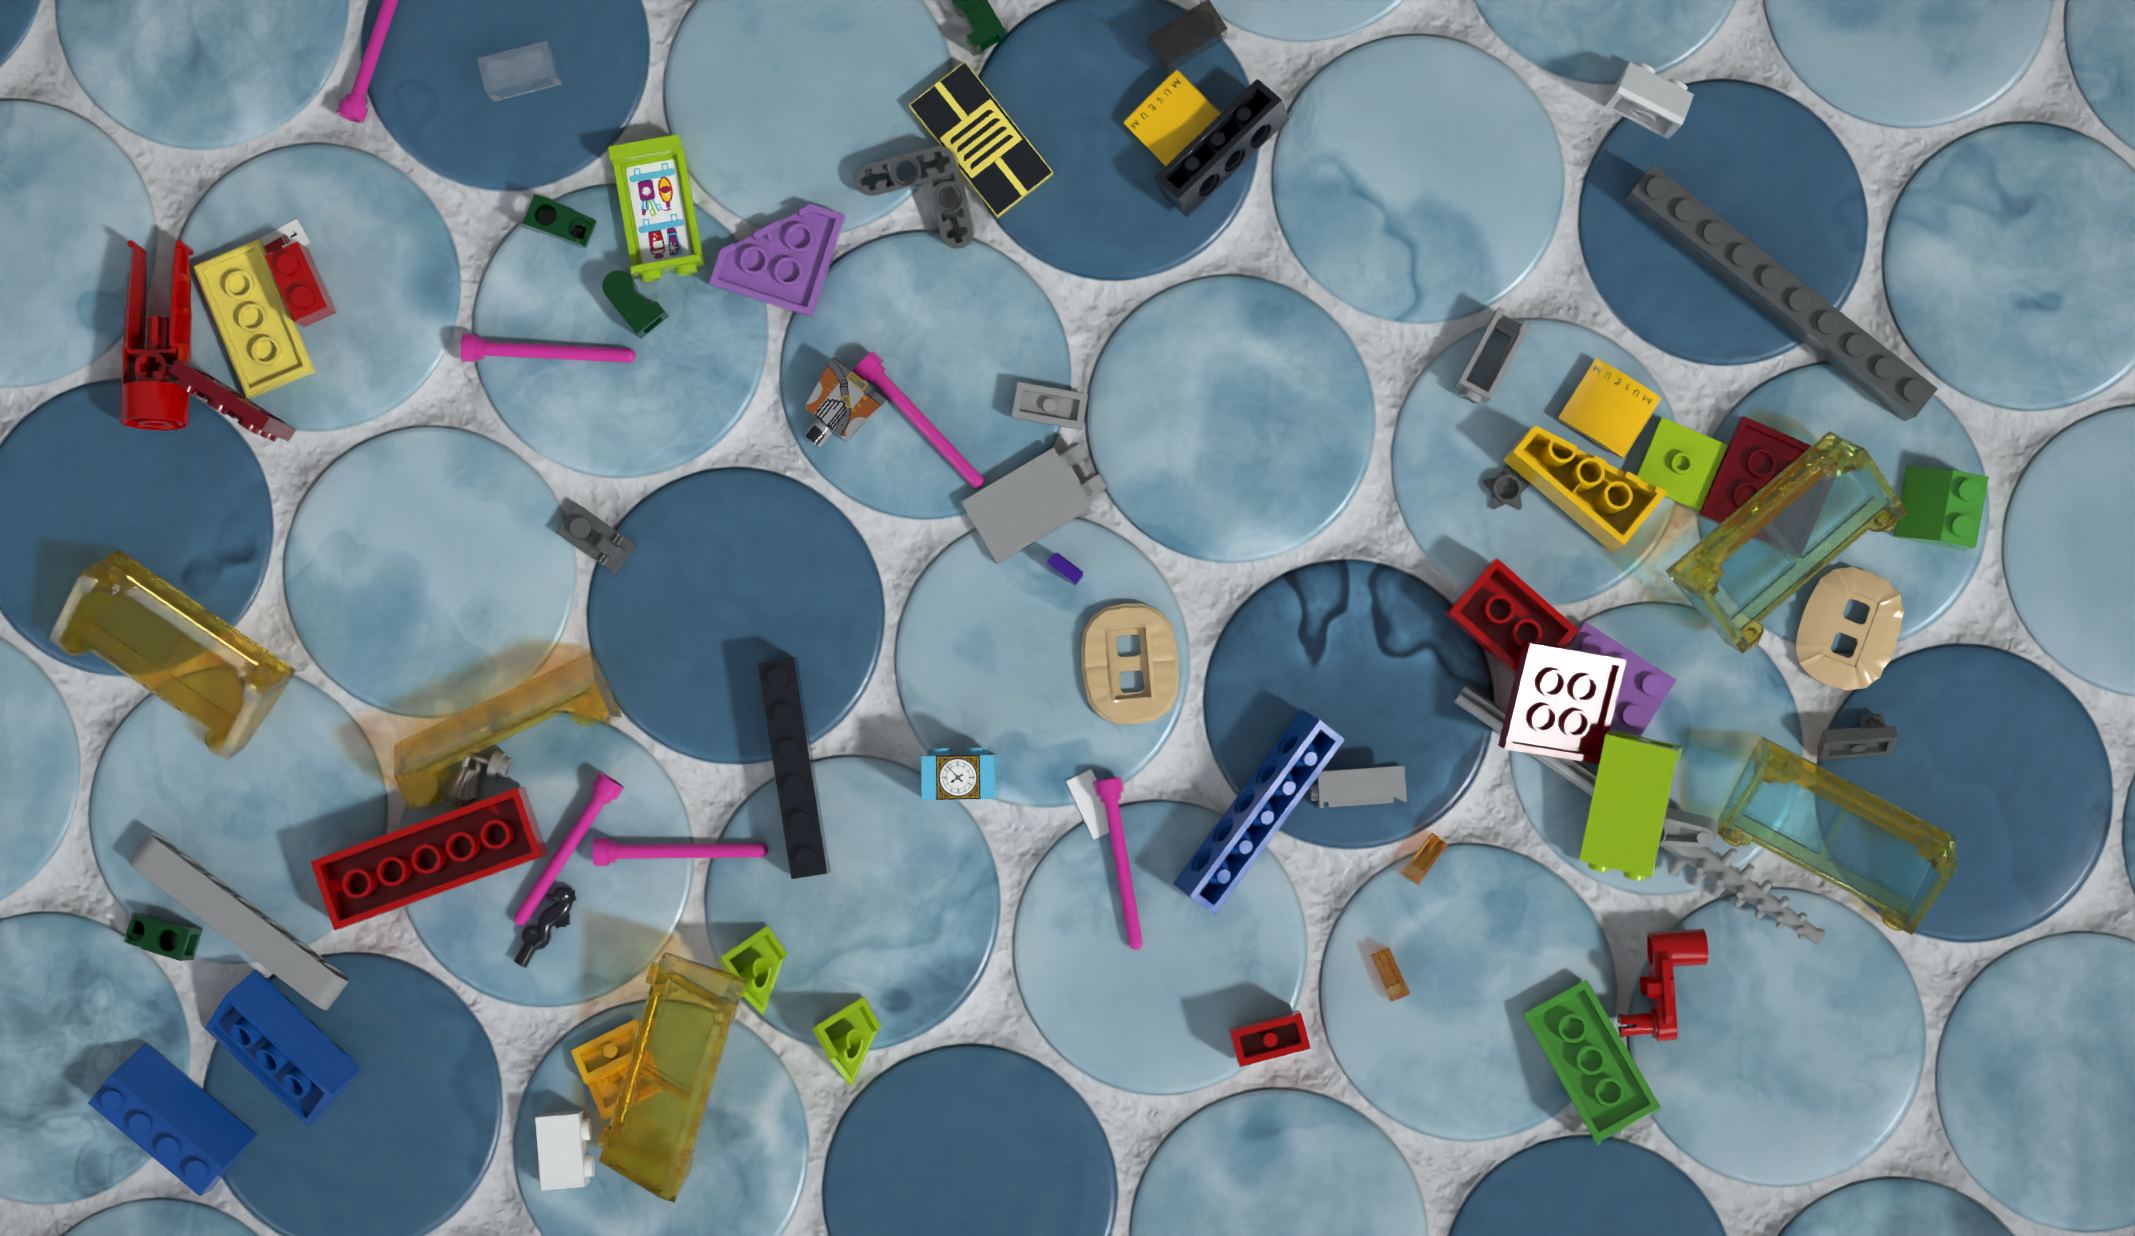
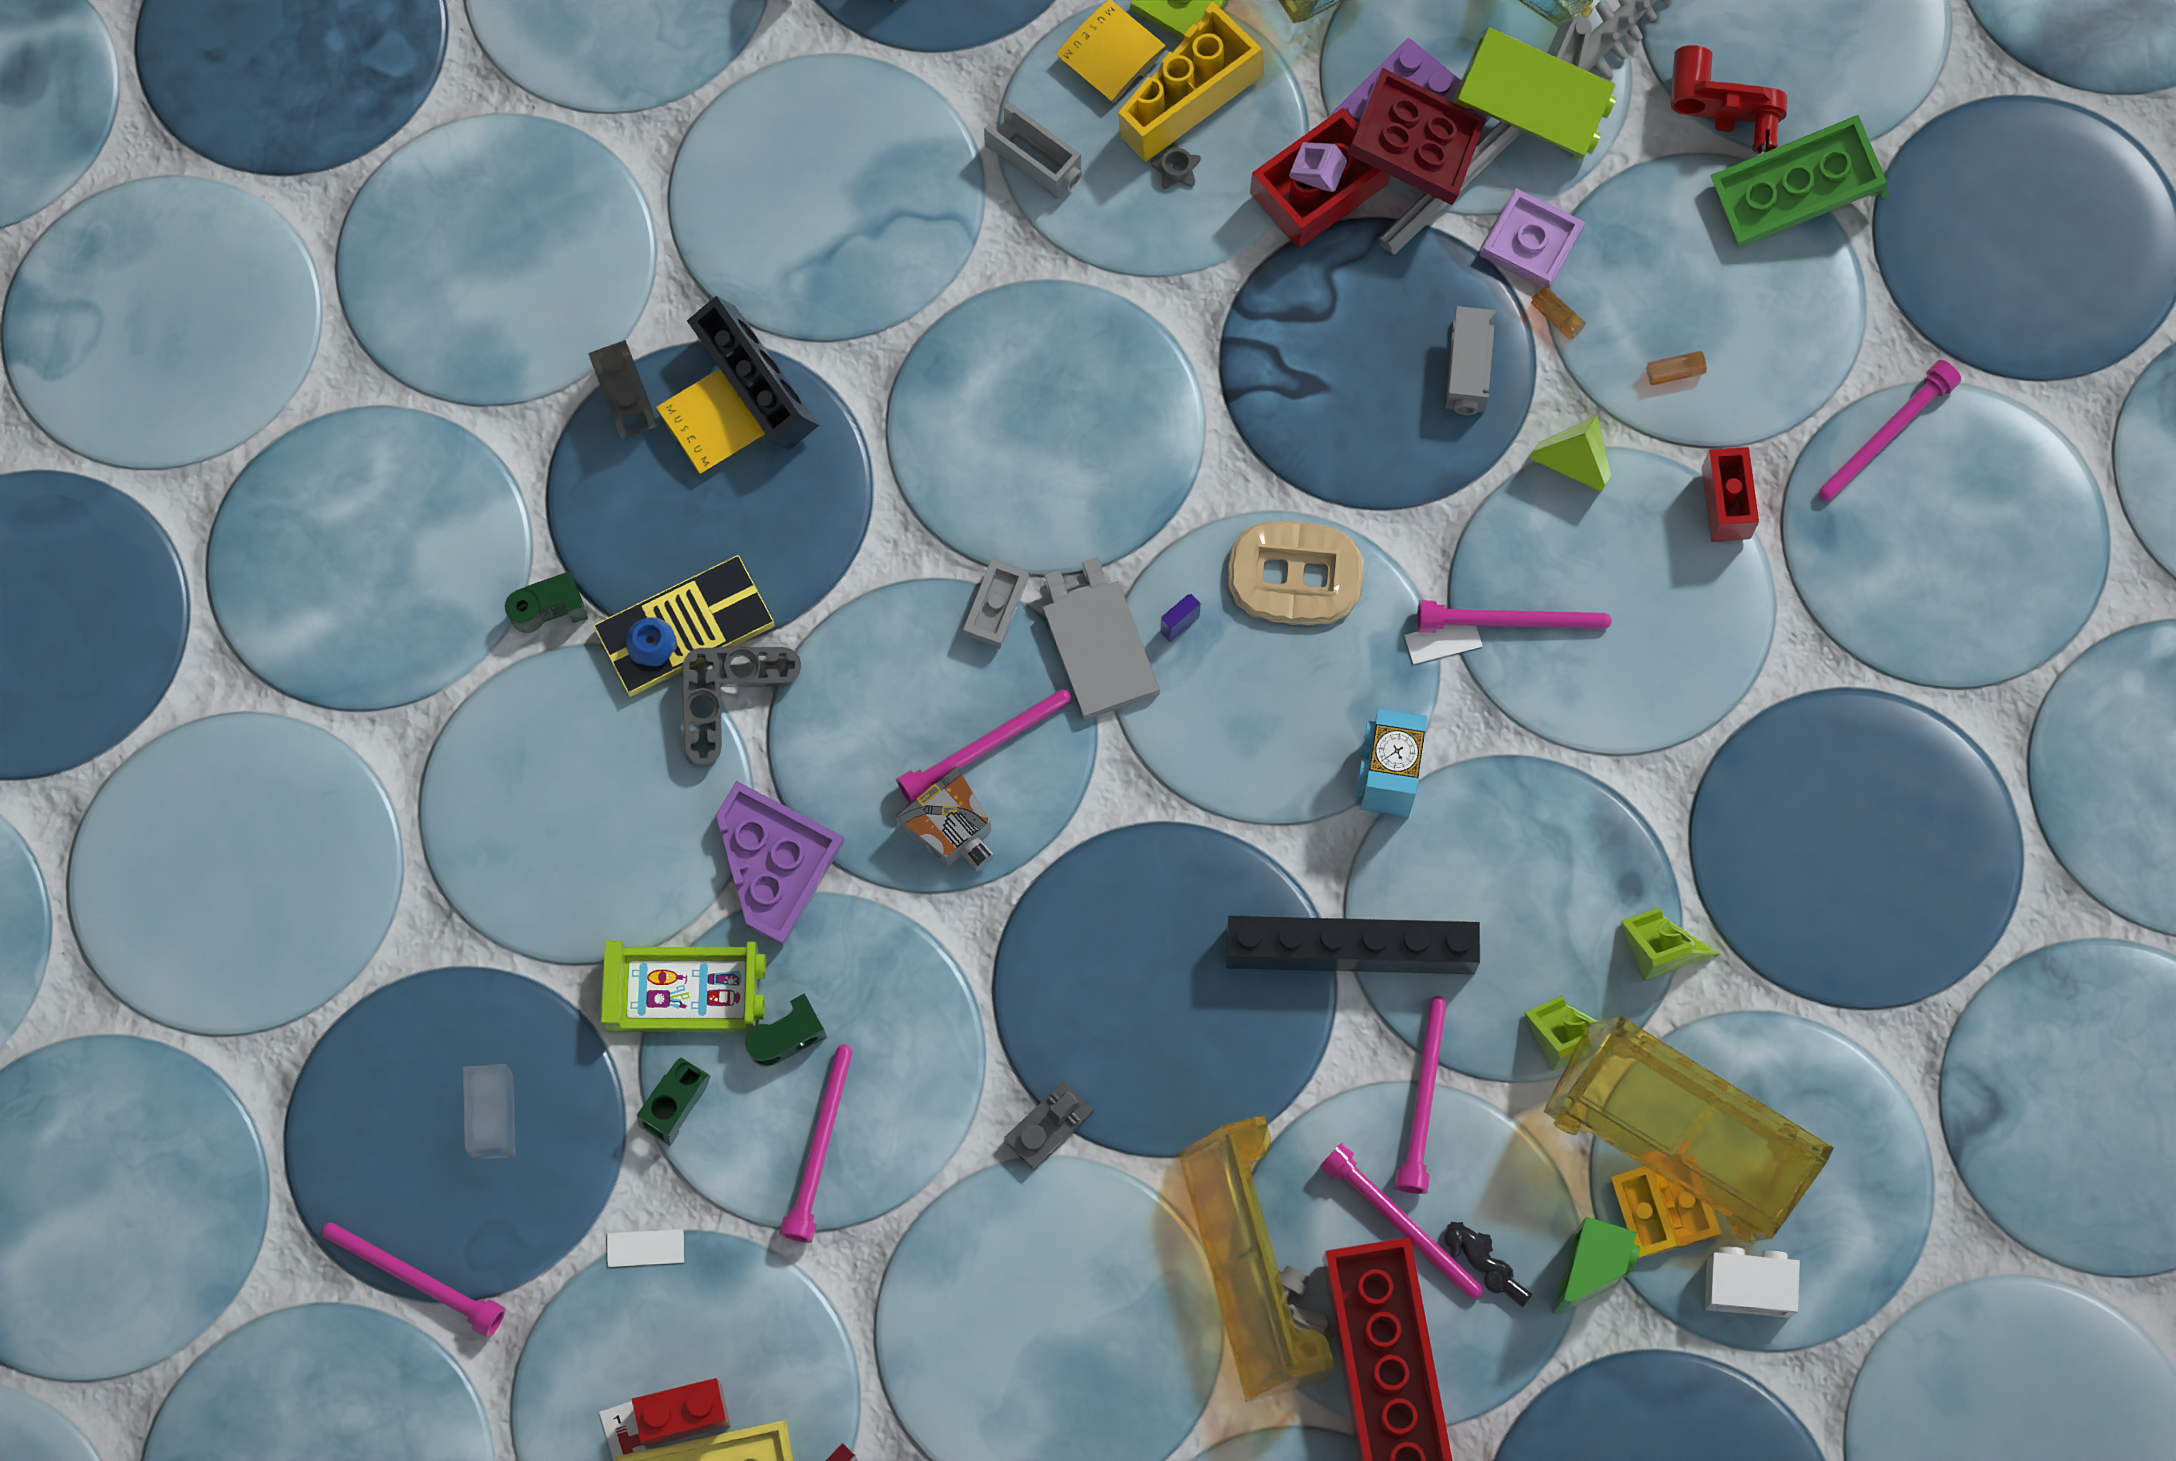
camera: 80 degrees left, 15 degrees down
(436, 226) = (645, 1247): none -> white sticker
(549, 1015) = (1595, 1262): none -> bright green slope
(951, 124) = (656, 652): none -> blue plate
(1258, 811) = (1482, 461): blue brick -> none
(1287, 895) = (1577, 454): none -> lime slope
(1420, 1214) = (1940, 379): none -> dark pink piece
(1495, 825) = (1532, 238): none -> lavender tile
(1512, 617) = (1319, 165): none -> lavender slope

